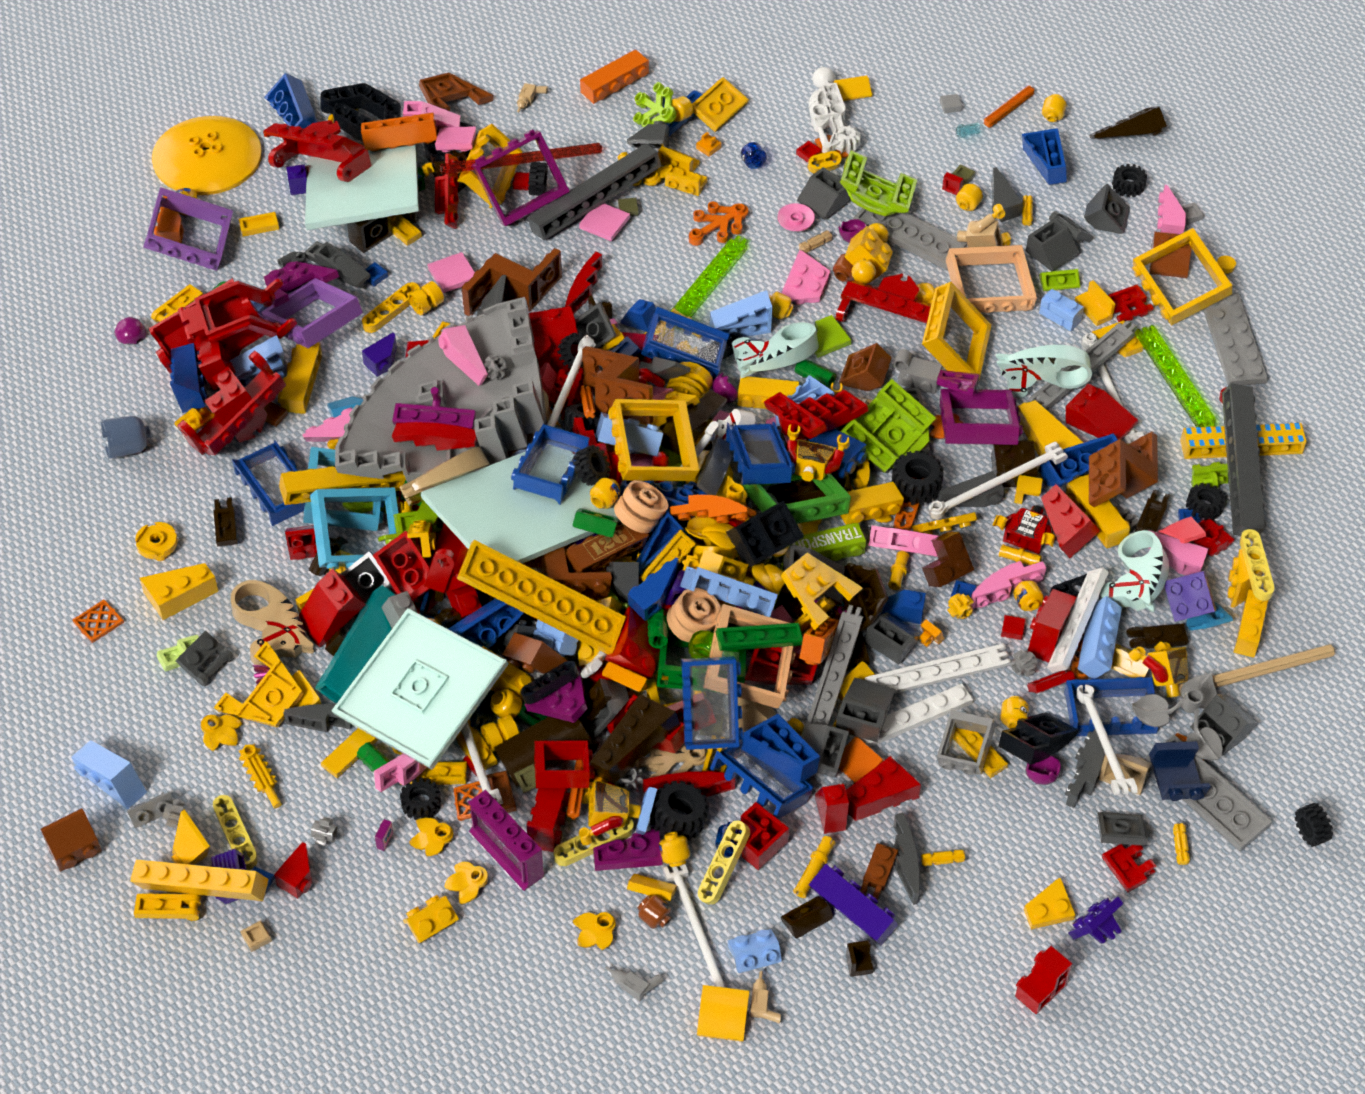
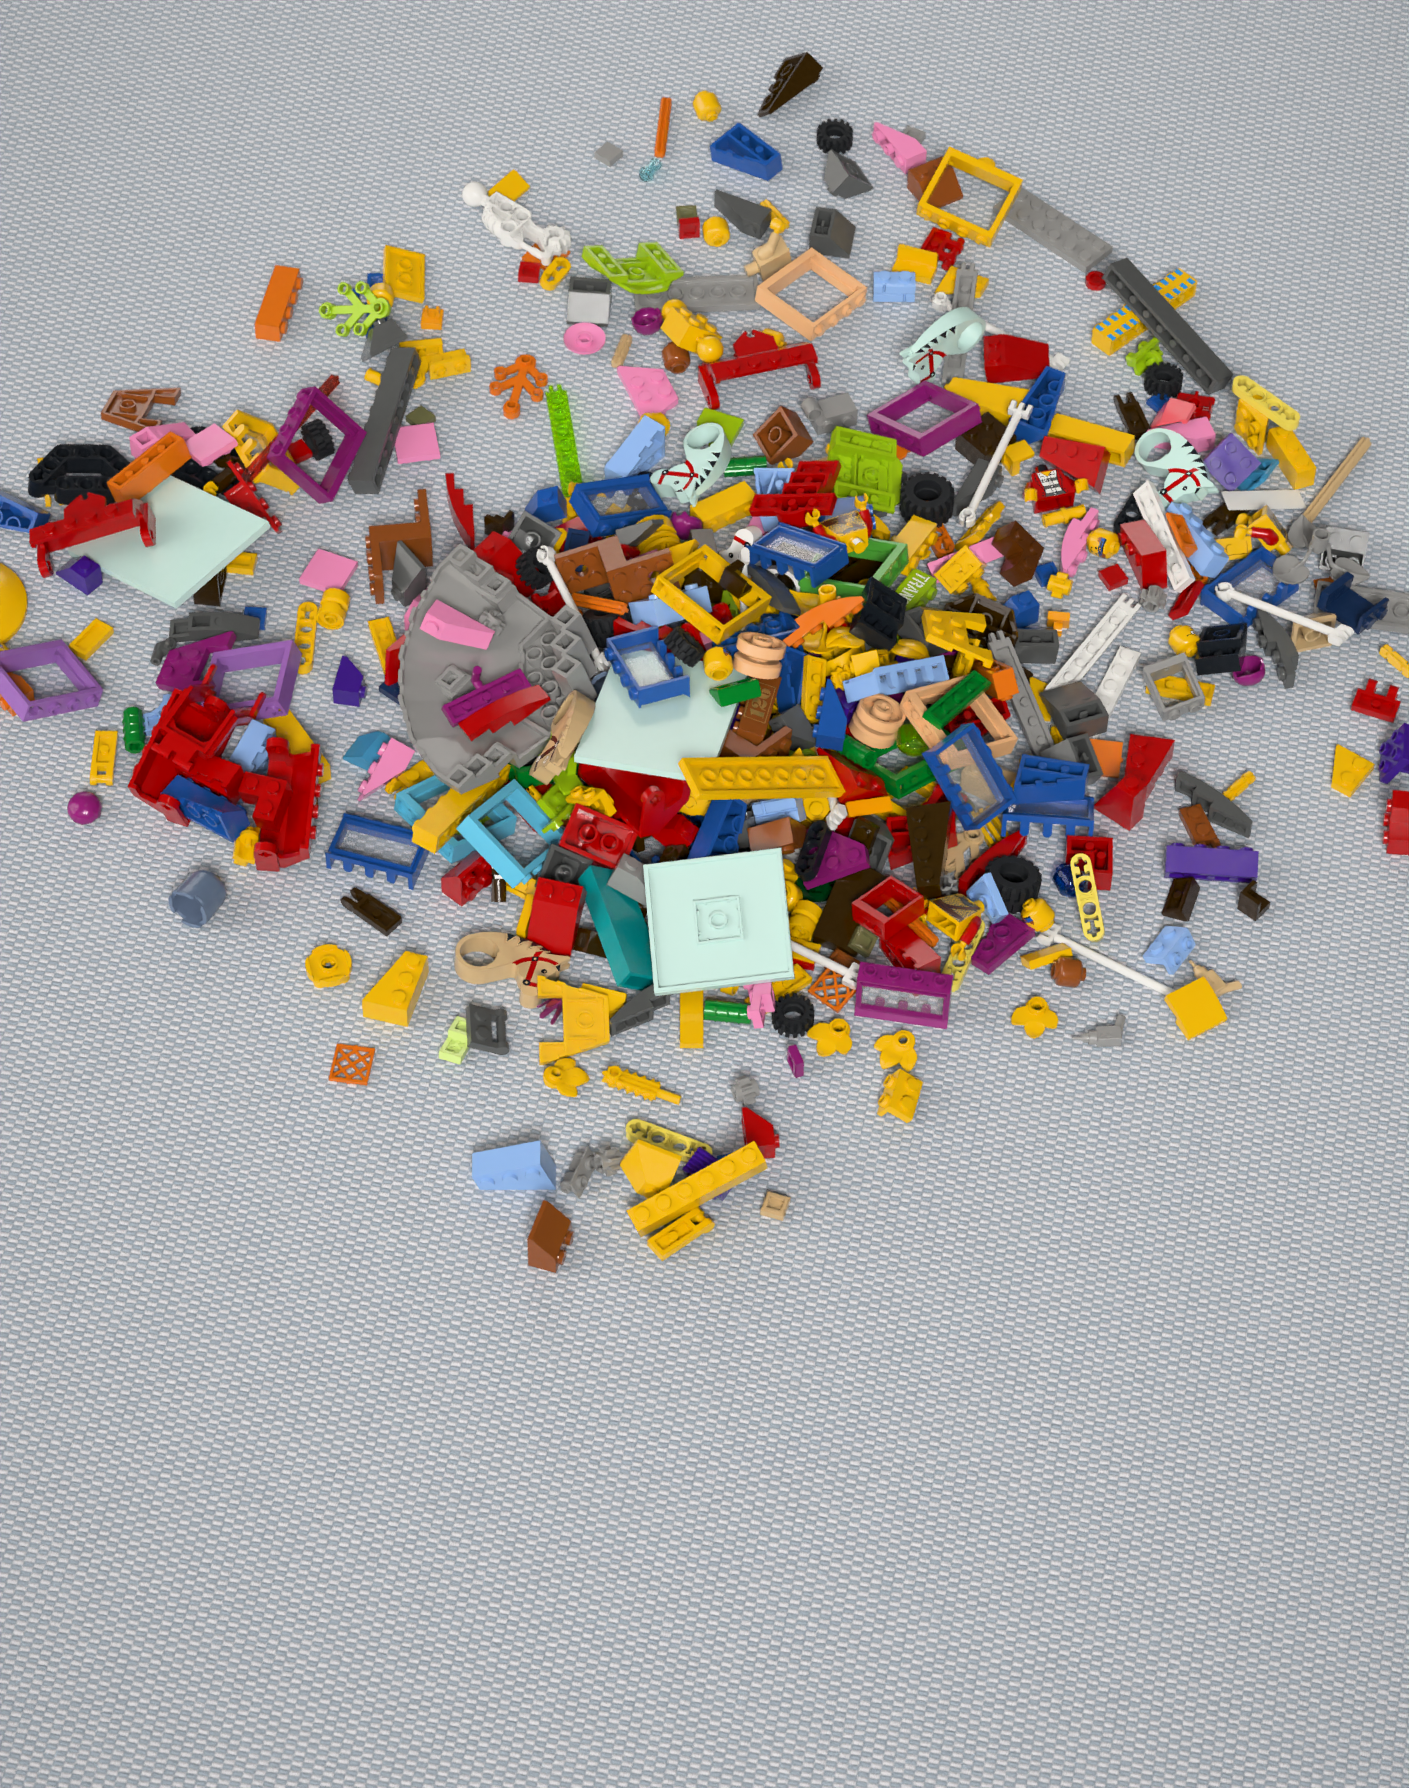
camera: 40 degrees left, 0 degrees up
(528, 93) = (212, 369): tan piece -> none
(676, 439) = (733, 581): none -> dark brown panel
(753, 155) = (487, 303): clear blue head -> none
(818, 859) = (1148, 851): yellow pin -> none
(888, 546) = (960, 571): none -> yellow bracket
(948, 297) = (851, 364): yellow window -> none
(958, 381) = (879, 398): magenta wing -> none
(1060, 280) = (863, 261): lime slope -> none
(1075, 230) = (844, 209): dark grey plate -> none
(1087, 624) = (1182, 533): none -> orange slope
(1121, 828) = (1347, 677): dark grey plate -> none
(1123, 469) = (1086, 390): dark orange bracket -> none
(1175, 377) = (1041, 290): clear neon green hinge -> none
(1195, 643) = (1258, 499): none -> white sticker

